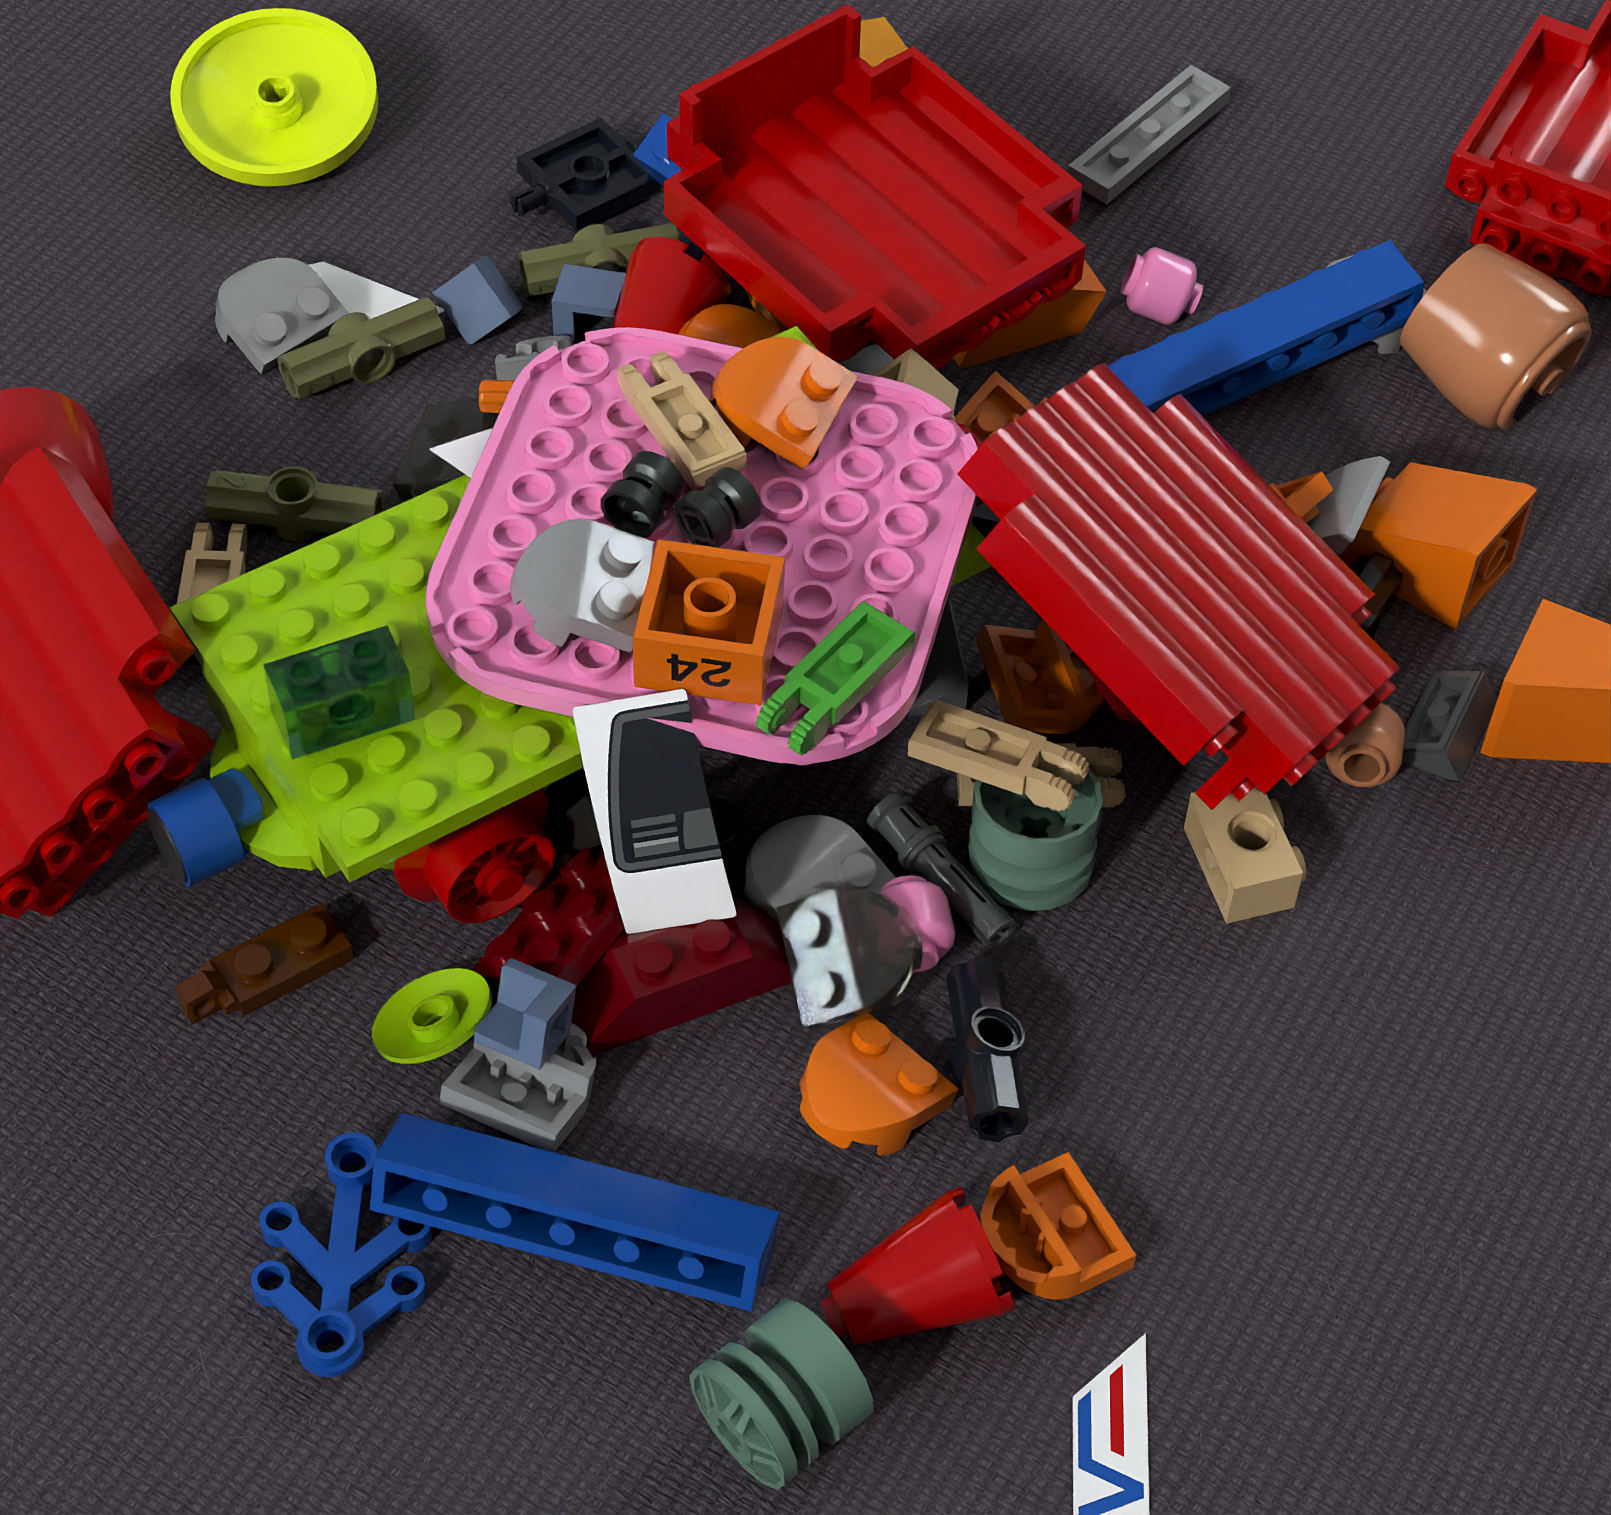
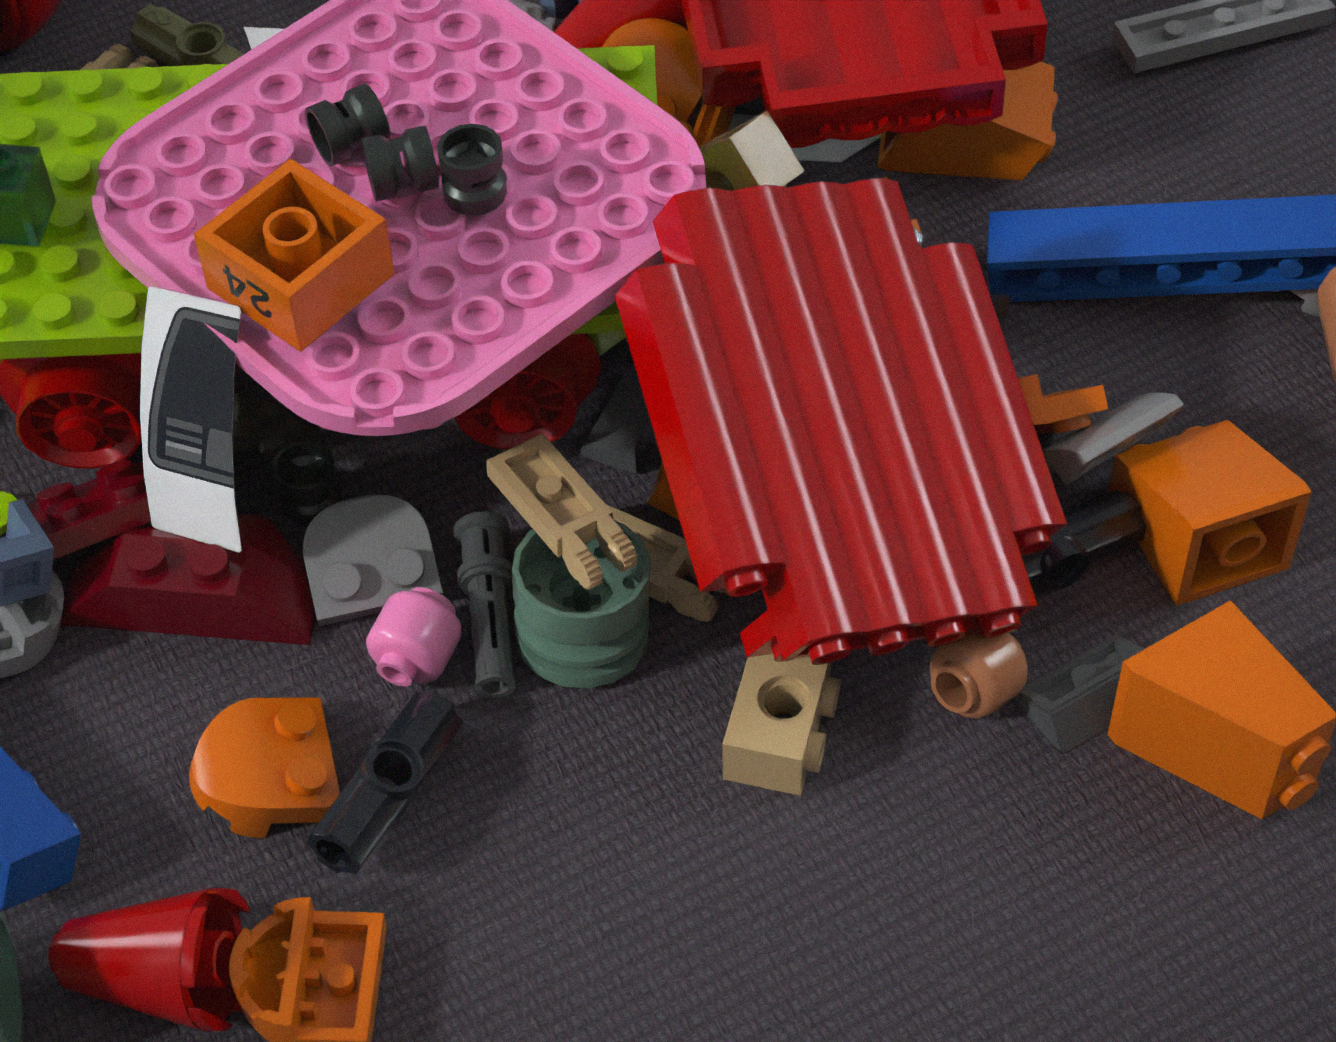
camera: 35 degrees right, 0 degrees up
(584, 582) = (225, 164): light grey slope -> none
(682, 420) = (440, 75): tan hinge -> none
(781, 396) = (547, 90): orange slope -> none
(785, 487) = (472, 180): none -> pearl dark grey wheel
(836, 675) = (378, 353): bright green hinge -> none
(848, 953) = (329, 635): clear smoke slope -> none
(1161, 286) = (1119, 163): bright pink head -> none

